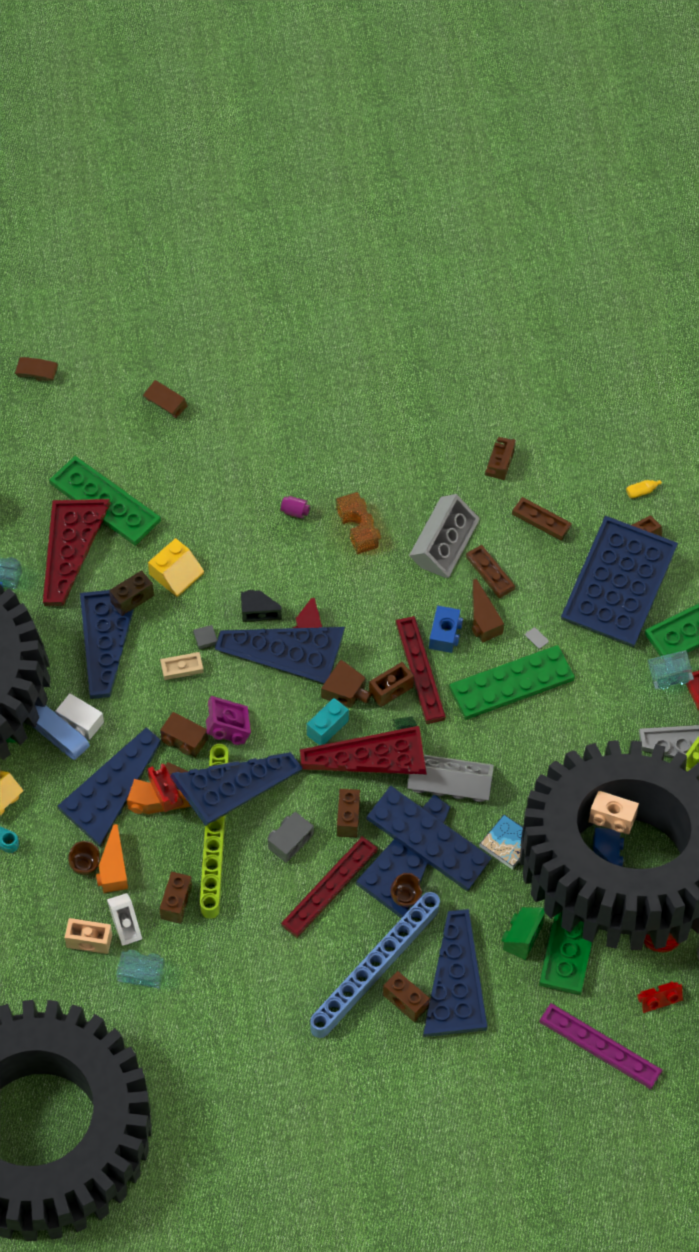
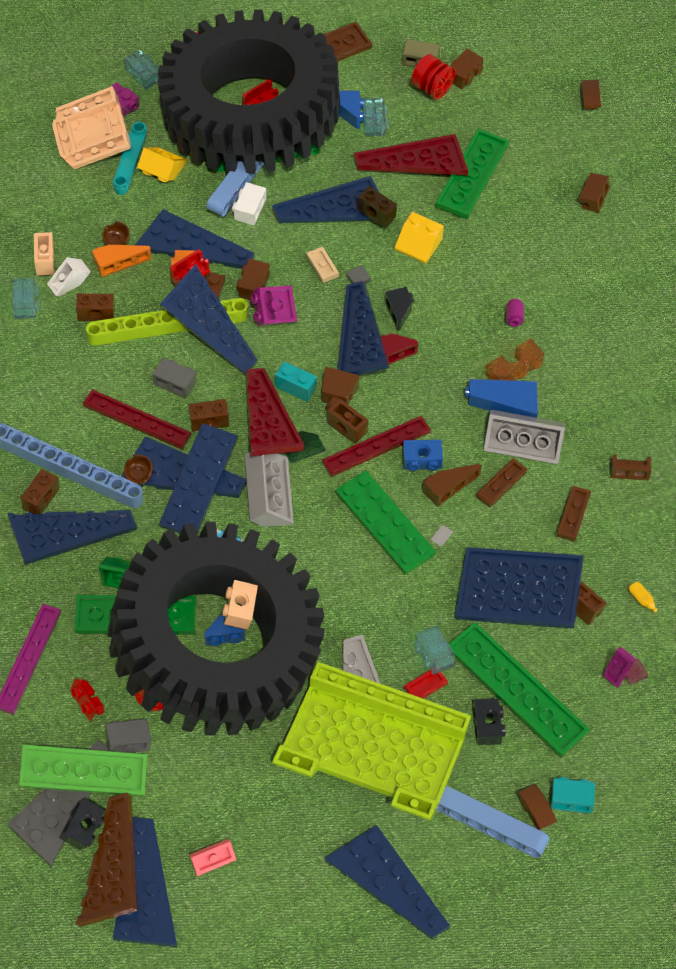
camera: 75 degrees right, 0 degrees up
(396, 539) = (503, 396): none -> blue slope

